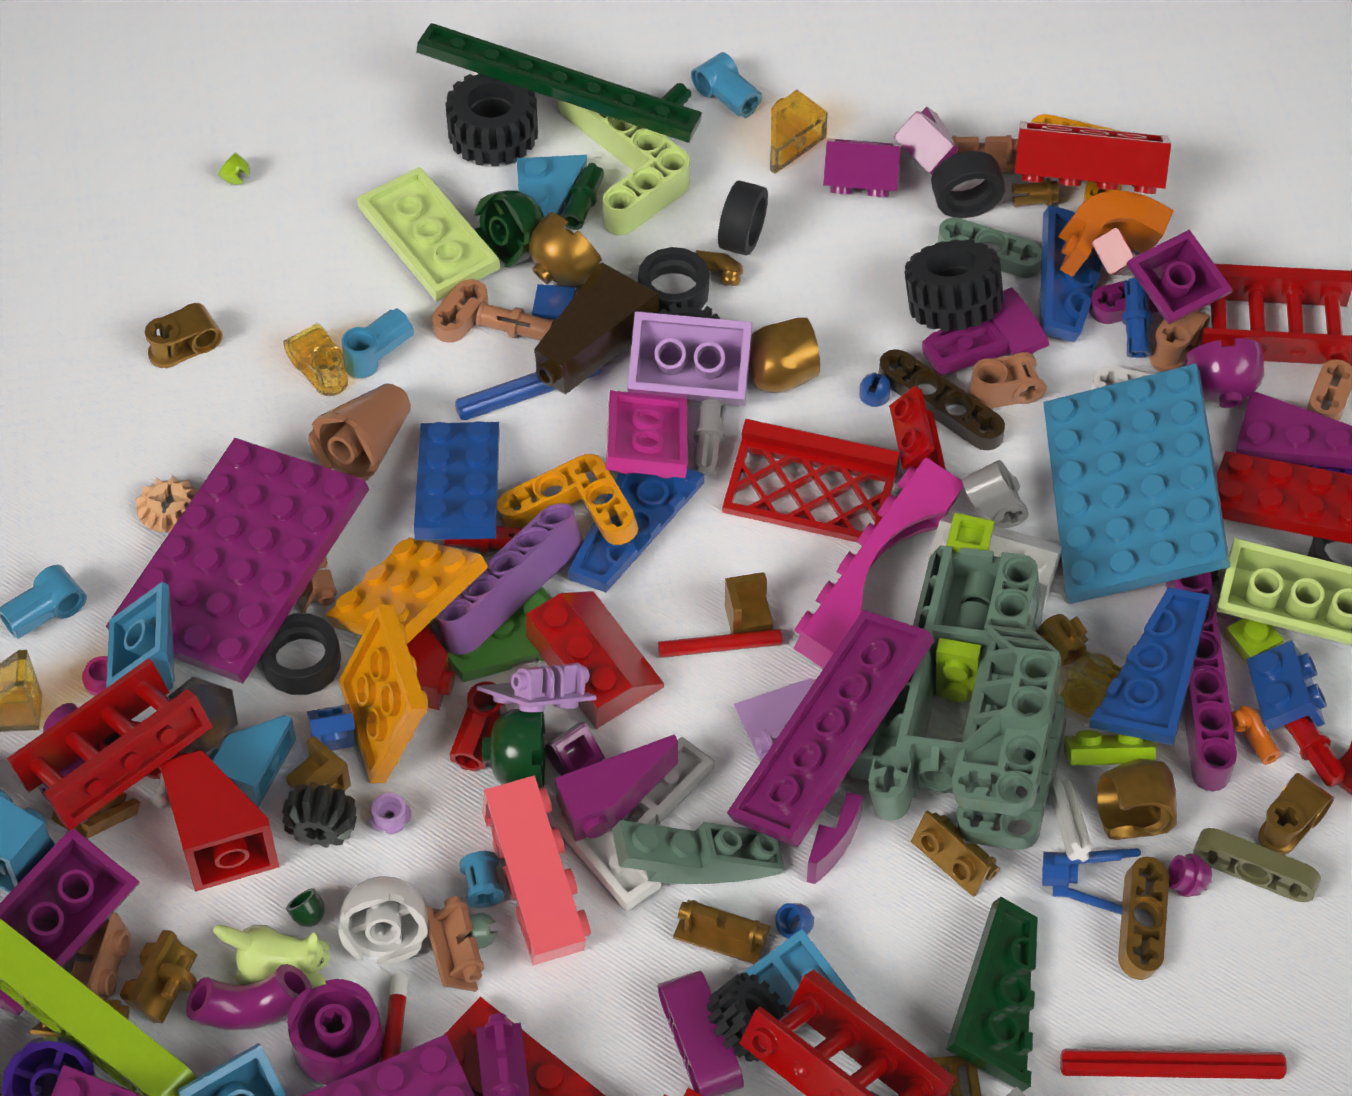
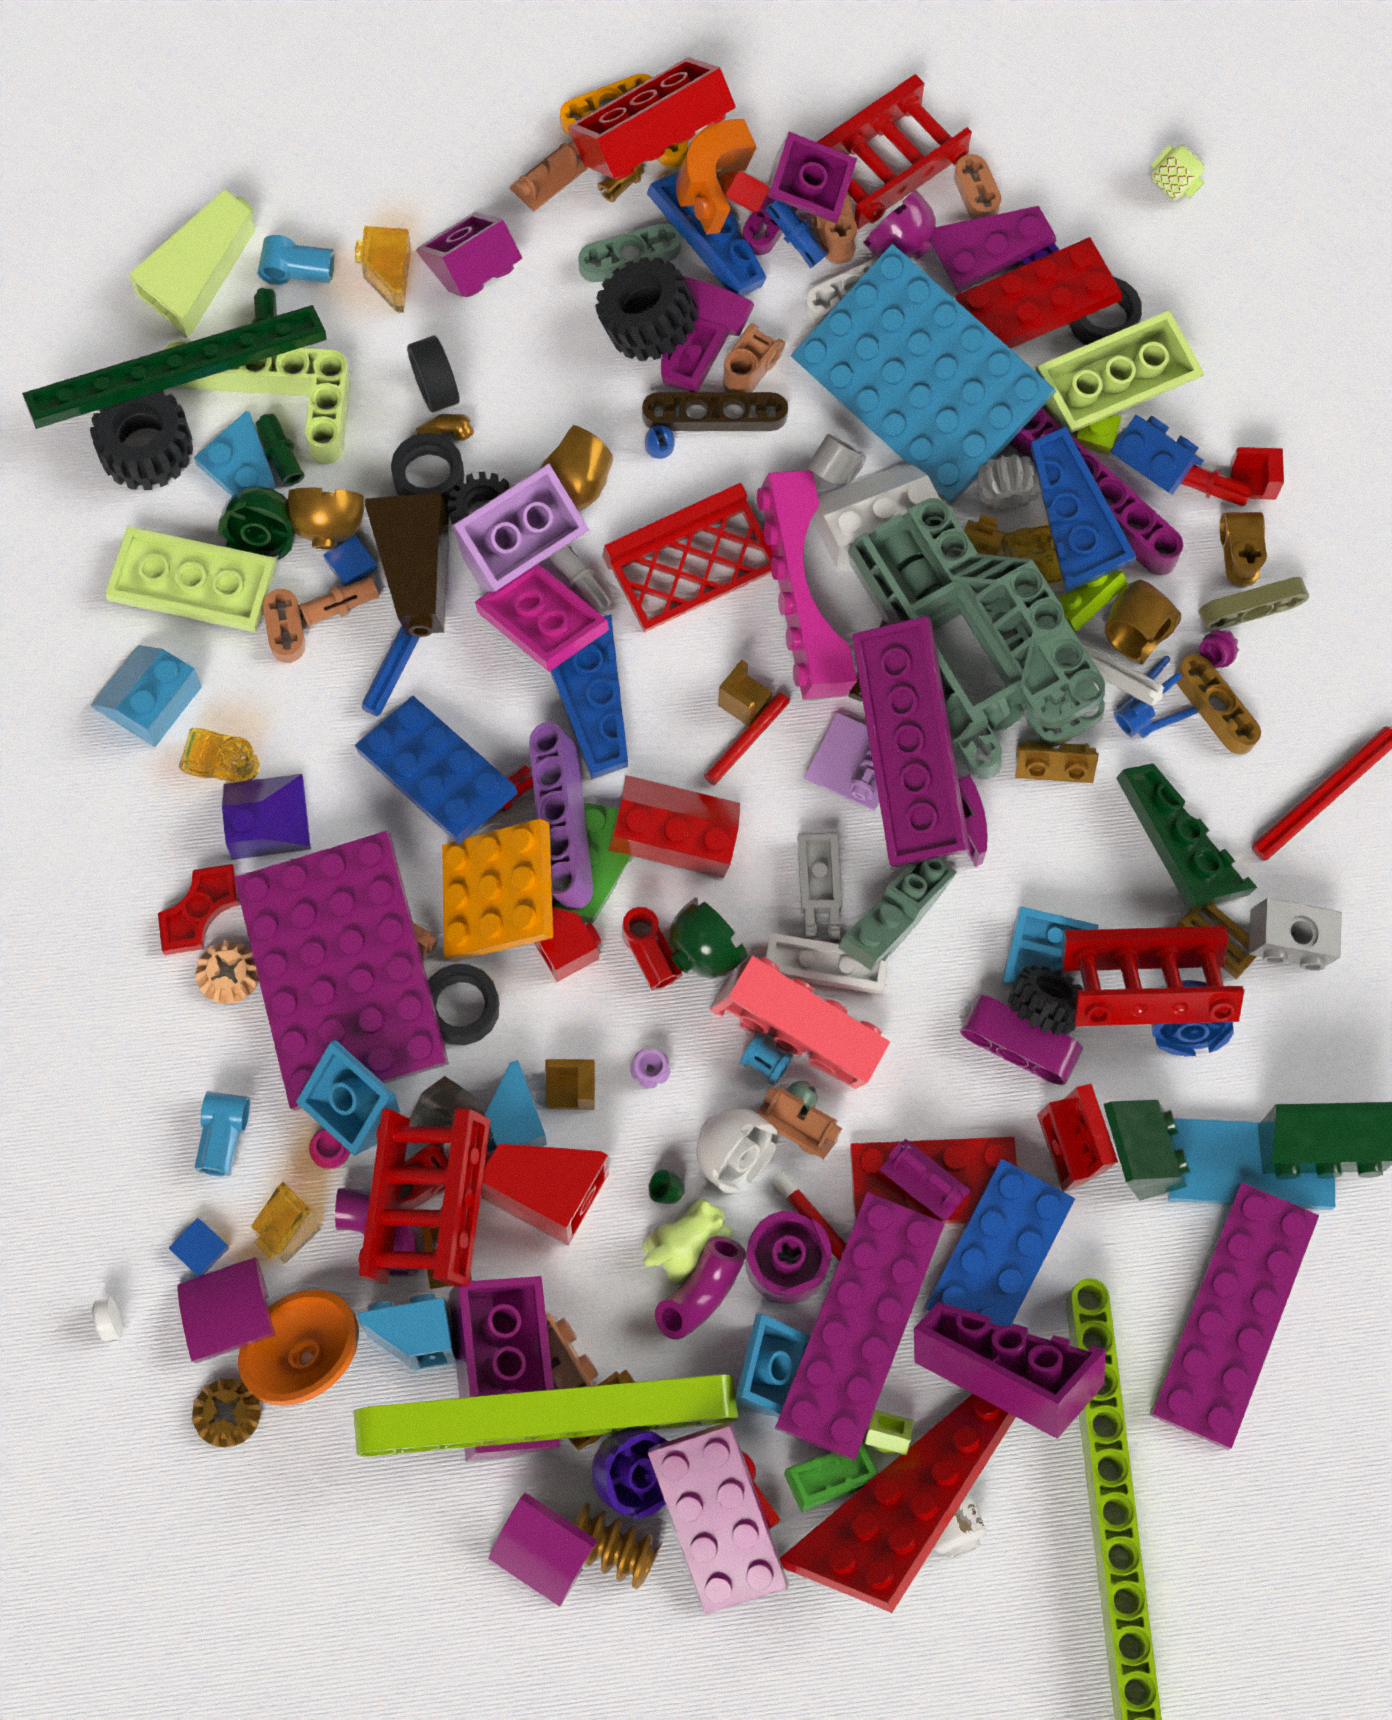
camera: 45 degrees left, 15 degrees up
(162, 977) = (626, 1325): pearl gold hips -> none
(178, 451) = (186, 923): none -> red tile
(183, 332) = (90, 819): pearl gold piece -> none
(286, 417) = (265, 817): none -> dark purple slope
(318, 287) = (148, 693): none -> dark azure slope
(319, 814) = (611, 1113): pearl dark grey gear -> none
(333, 726) = (547, 1038): blue bracket -> none
(360, 431) = (324, 791): nougat cone -> none
(367, 345) = (250, 704): dark azure piece -> none
(383, 693) = (572, 985): light orange plate -> none
(541, 686) = (683, 888): lavender hinge -> none
(573, 749) = (736, 907): magenta brick -> none
(575, 487) = (529, 703): light orange beam -> none
(609, 790) = (798, 924): magenta slope -> none
(657, 37) = (195, 261): none -> yellowish green slope
(721, 931) = (961, 953): pearl gold hinge -> none
(790, 914) = (1010, 906): blue hinge -> none
(915, 430) = (732, 456): red bracket -> none
(926, 139) = (505, 195): slope -> none
(956, 669) = (947, 622): lime plate -> none
(962, 168) = (573, 212): black tyre -> none
(970, 532) = (865, 512): lime plate -> none
(1123, 610) = (1007, 482): none -> light grey gear
(1250, 724) = (1167, 505): orange arm -> none

